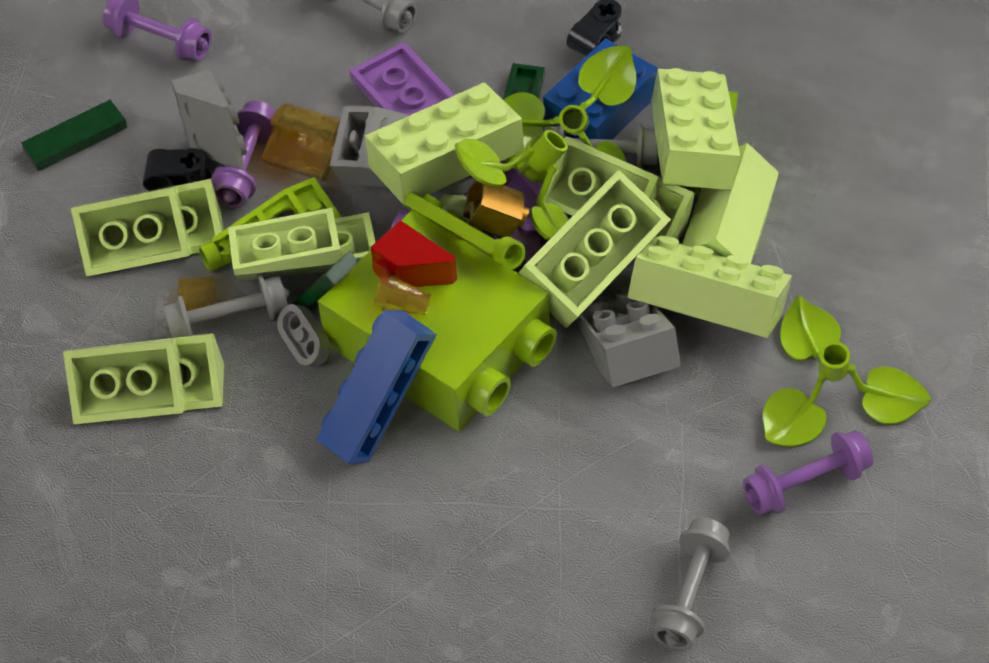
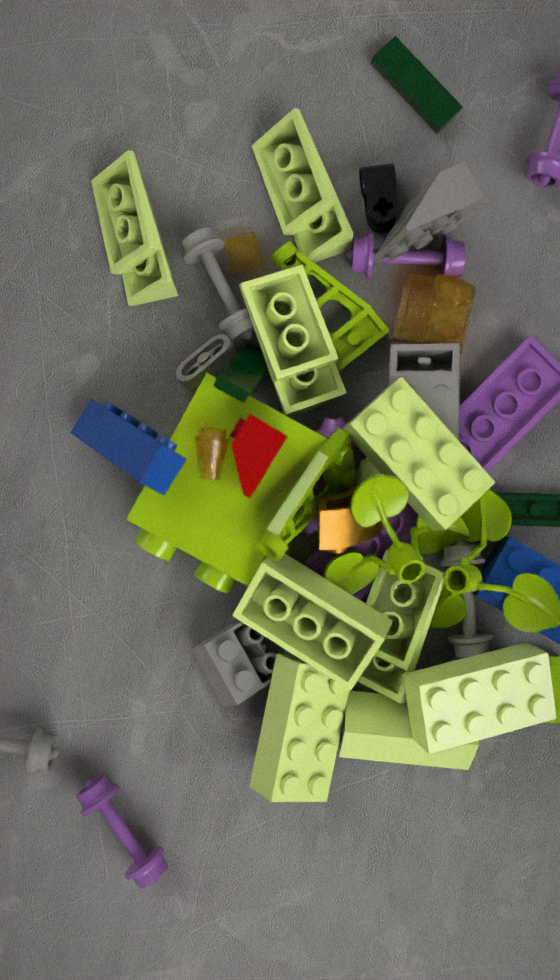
camera: 75 degrees right, 35 degrees up
(808, 332) = (222, 891): lime plant -> none

